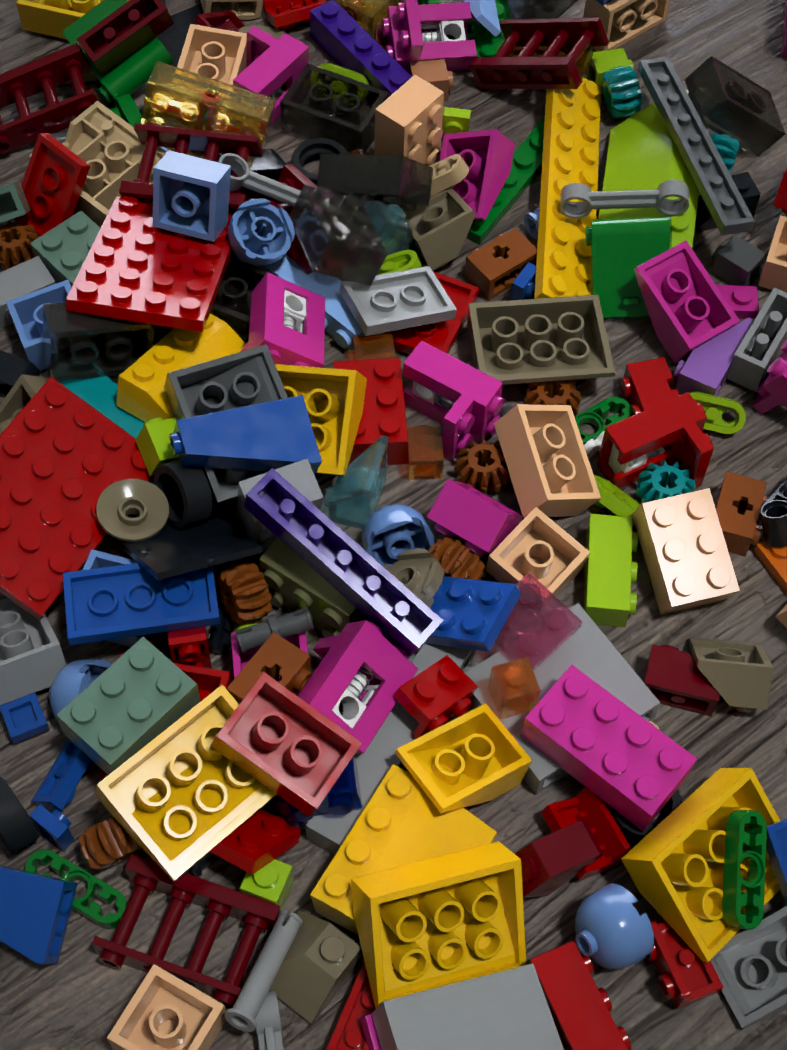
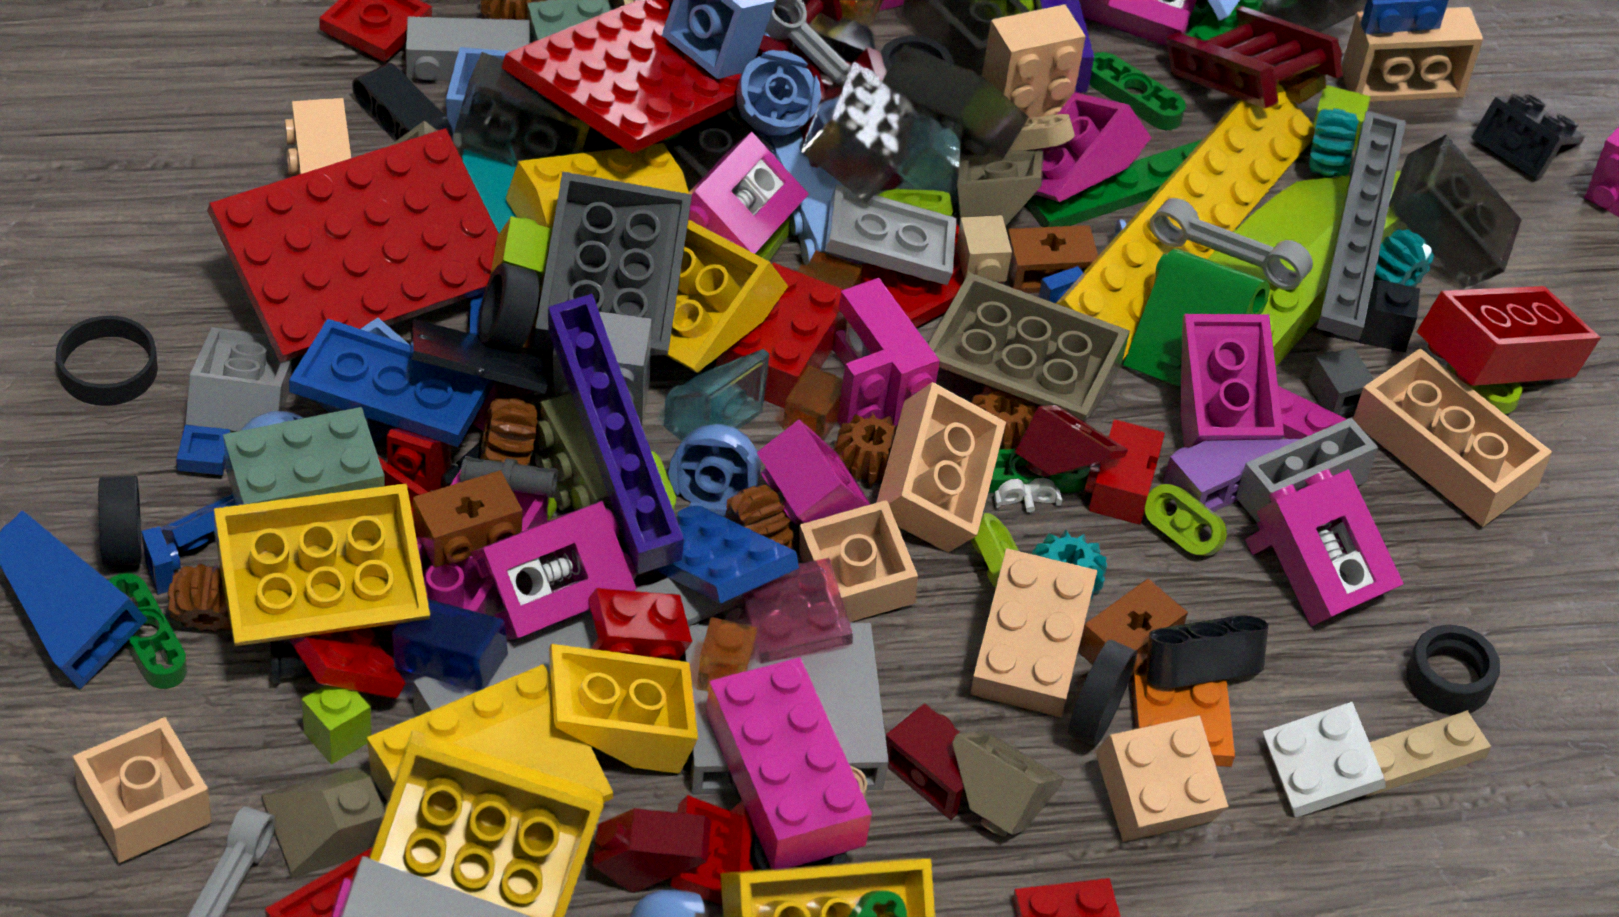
camera: 25 degrees right, 10 degrees down
(128, 498) = (445, 299): dark tan dish -> none
(187, 890) = (249, 682): dark red fence -> none
(248, 437) = (618, 271): blue slope -> none
(264, 972) = (272, 786): light grey pin -> none
(286, 744) = (429, 566): red brick -> none
(419, 573) = (702, 504): dark tan plate -> none
(435, 73) = (1114, 32): nougat brick -> none
(456, 120) = (1107, 86): lime plate -> none
(463, 280) = (984, 247): none -> tan brick
(488, 108) = (1156, 106): none -> green beam
(610, 570) = (936, 616): lime brick -> none
(617, 399) = (1064, 444): none -> dark red slope
(661, 432) = (1089, 498): red brick -> none
(725, 28) = (1525, 132): none -> black bracket
(758, 572) = (1102, 692): none -> black tyre

